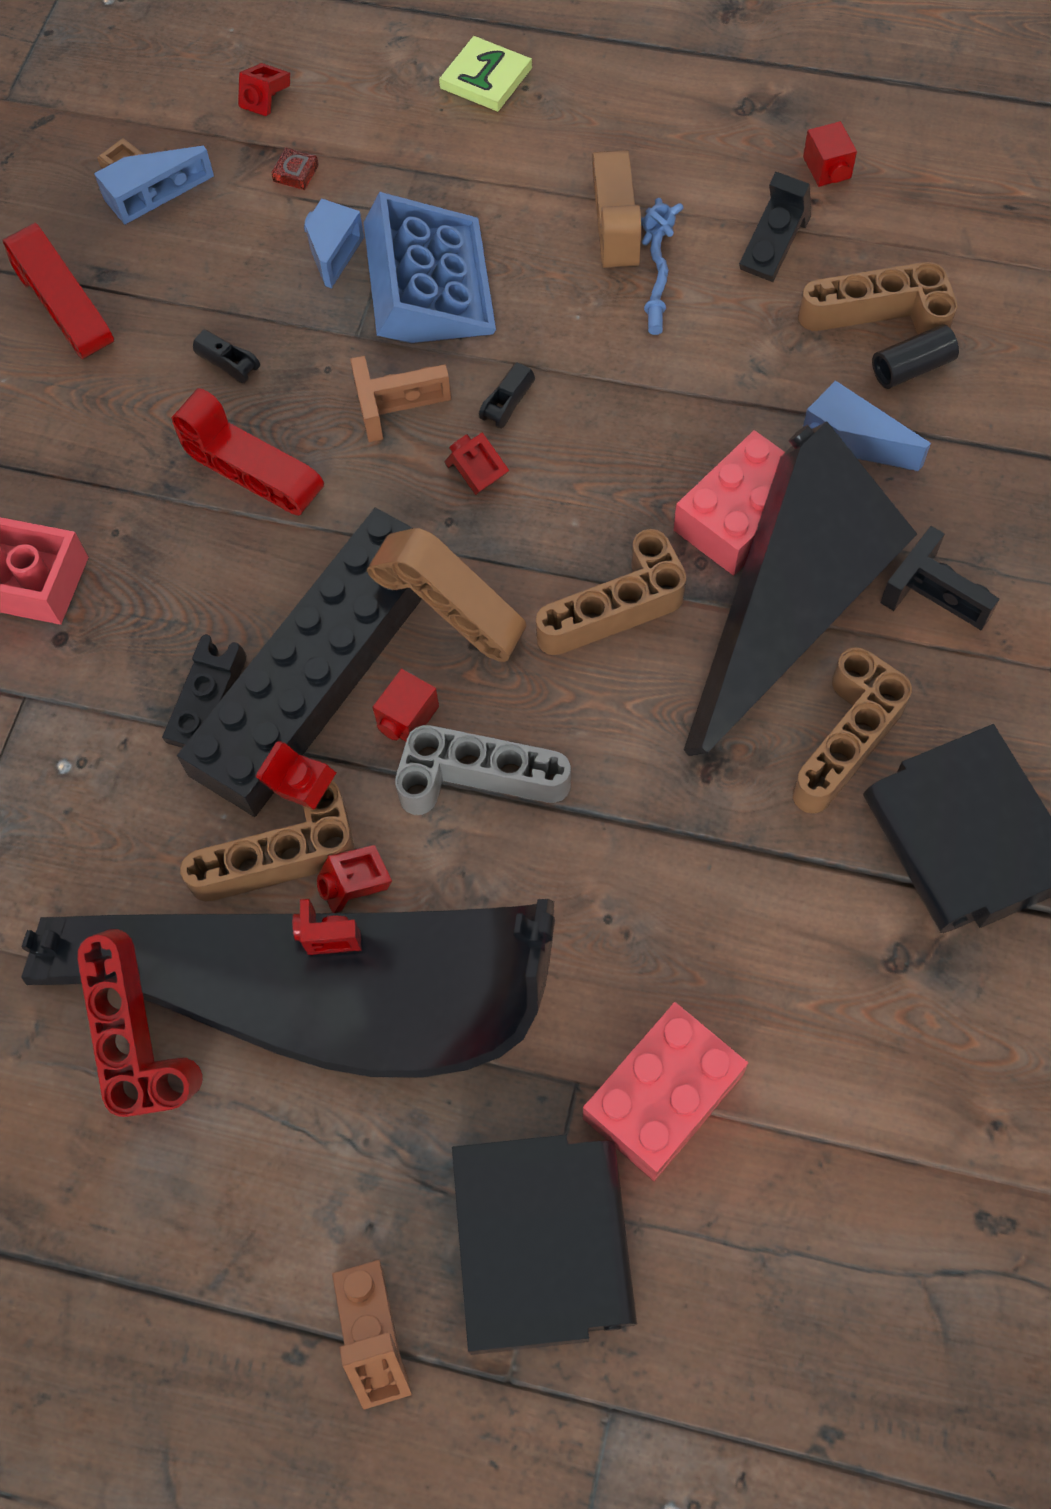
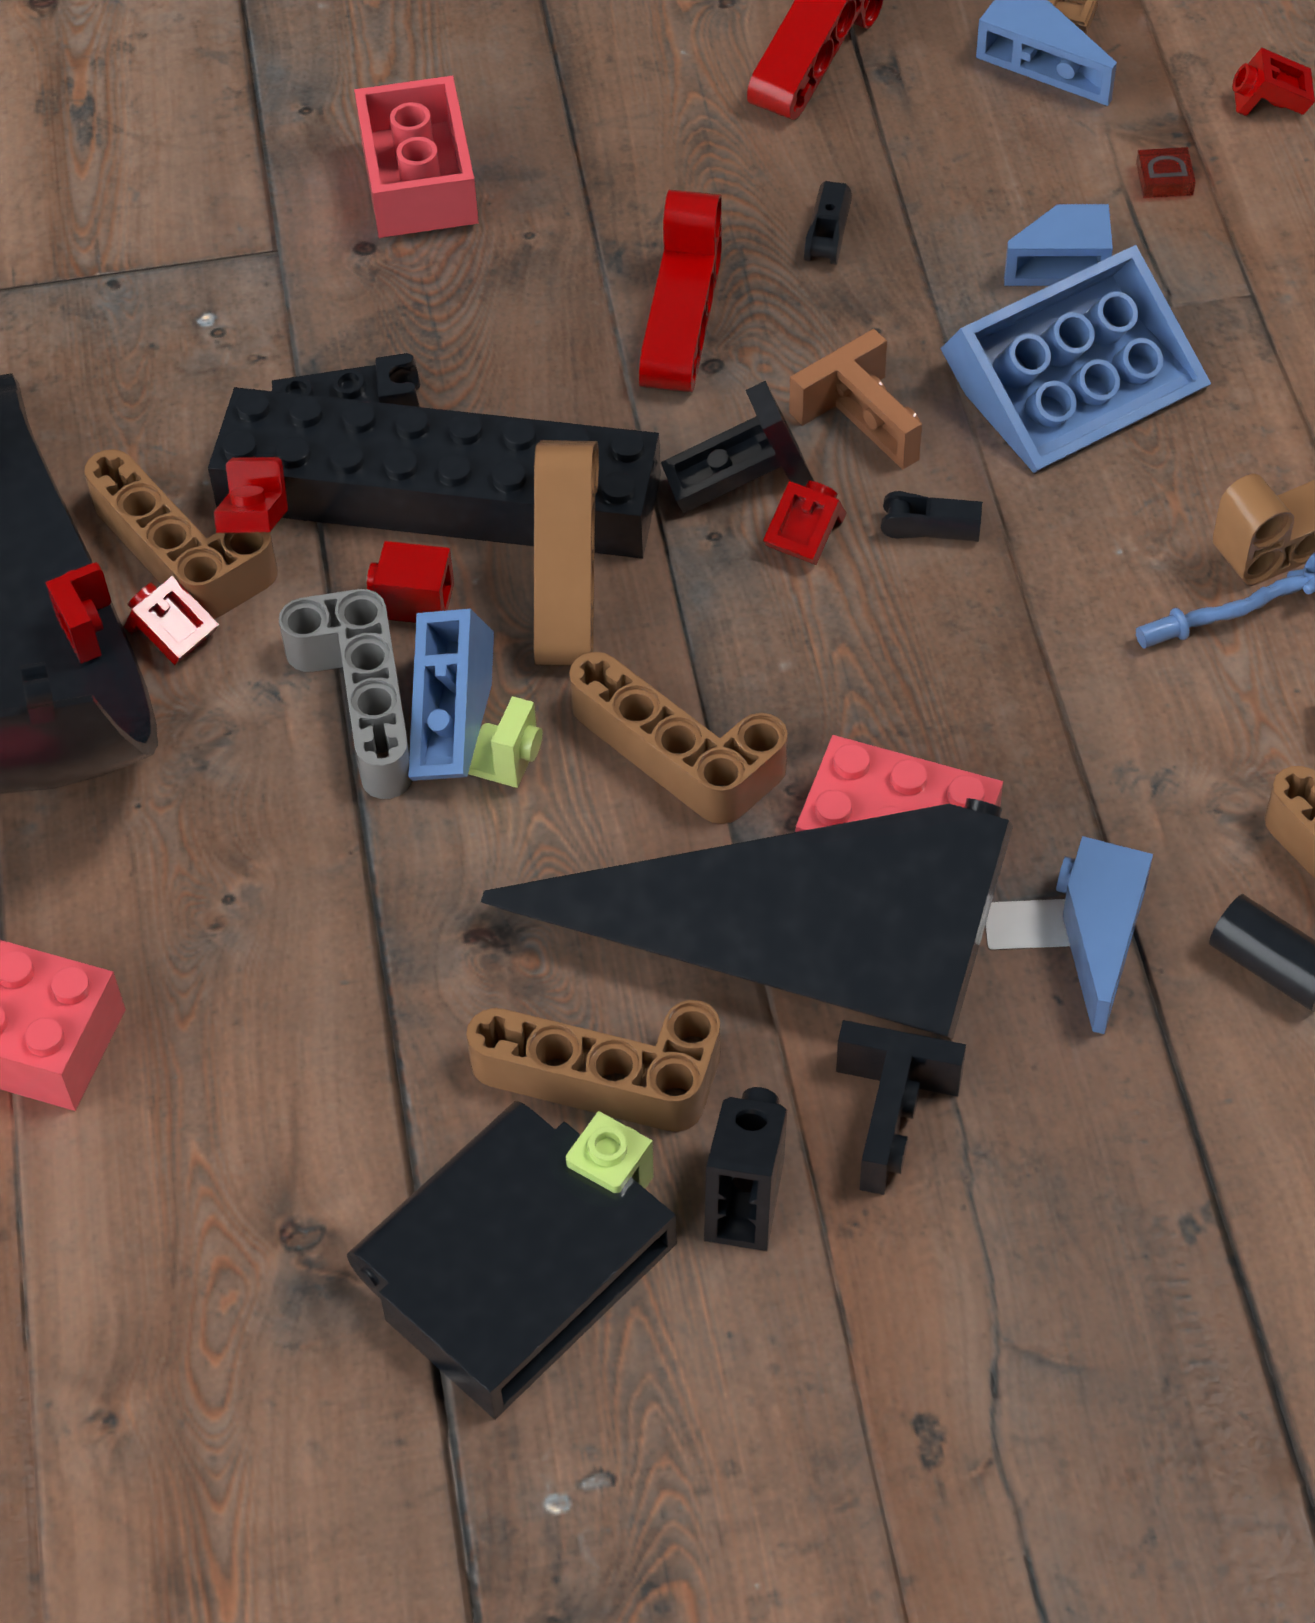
camera: 65 degrees right, 10 degrees down
(408, 471) = (737, 455): none -> black bracket
(522, 715) = (448, 692): none -> medium blue slope
(580, 697) = (507, 749): none -> yellowish green bracket
(935, 743) = (612, 1154): none -> yellowish green bracket
(966, 673) = (746, 1146): none -> black torso

